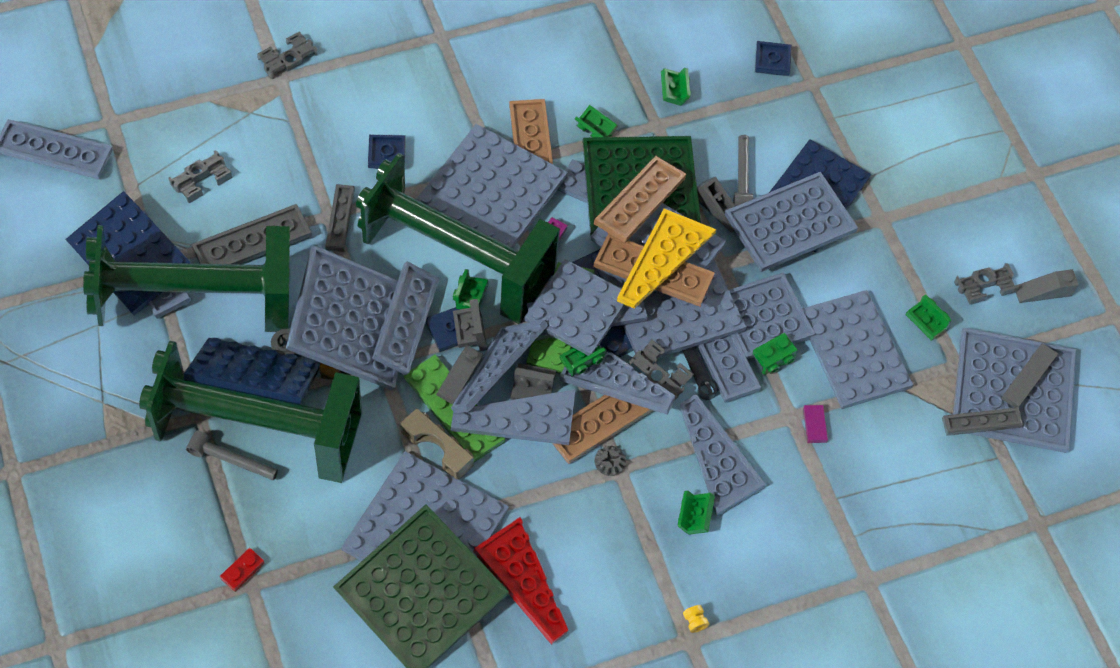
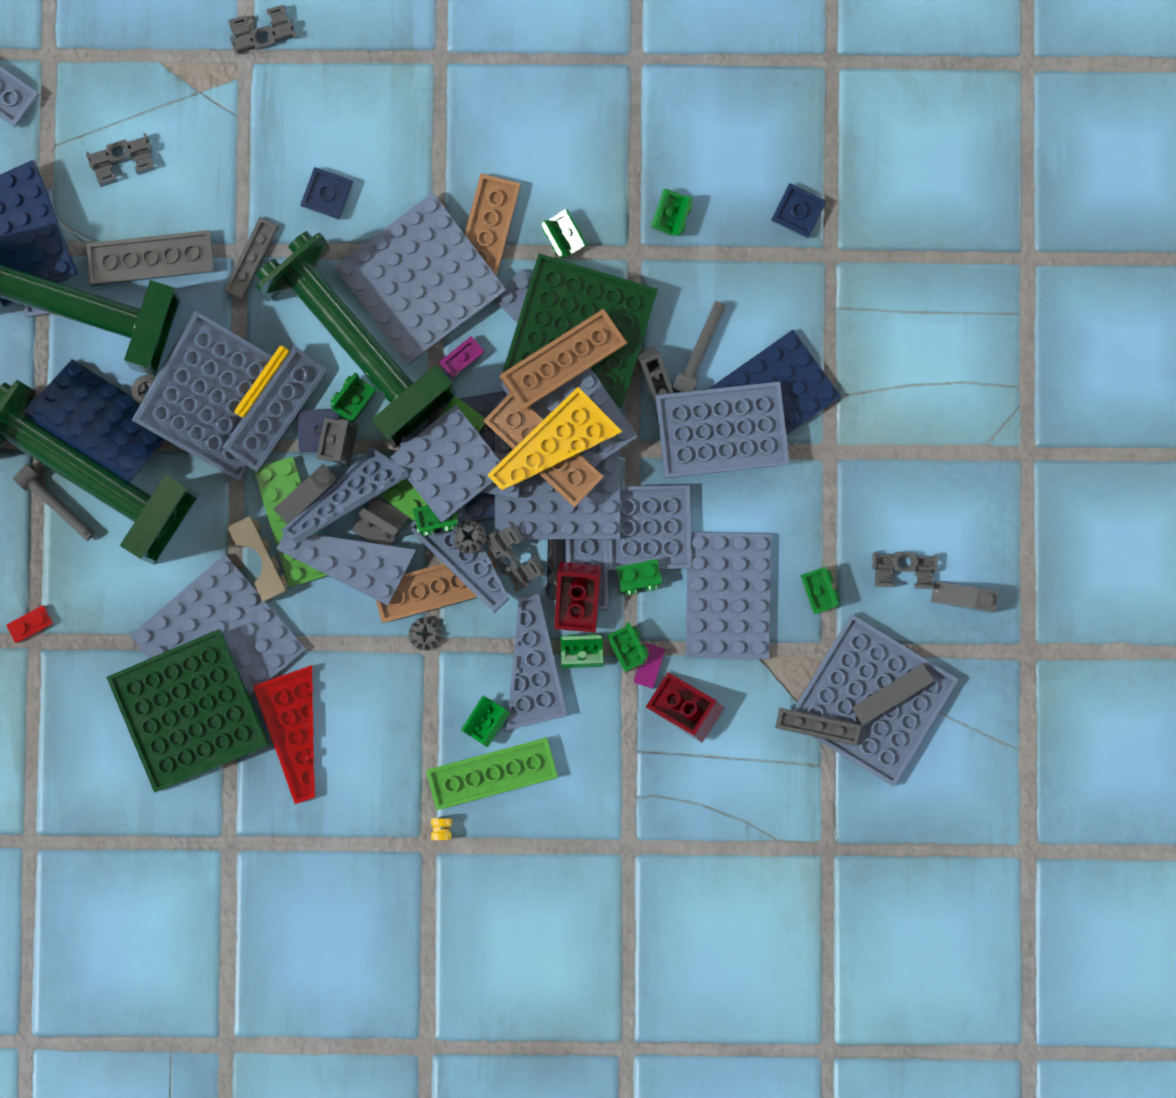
camera: 30 degrees right, 25 degrees up
(387, 297) = (262, 381): none -> yellow axle
(622, 367) = (468, 546): none -> dark grey gear
(719, 556) = (491, 773): none -> bright green plate
(732, 382) = (577, 597): none -> dark red slope
(753, 427) = (582, 651): none -> green bracket
(792, 411) = (628, 648): none -> green bracket
(863, 444) = (685, 707): none -> dark red slope

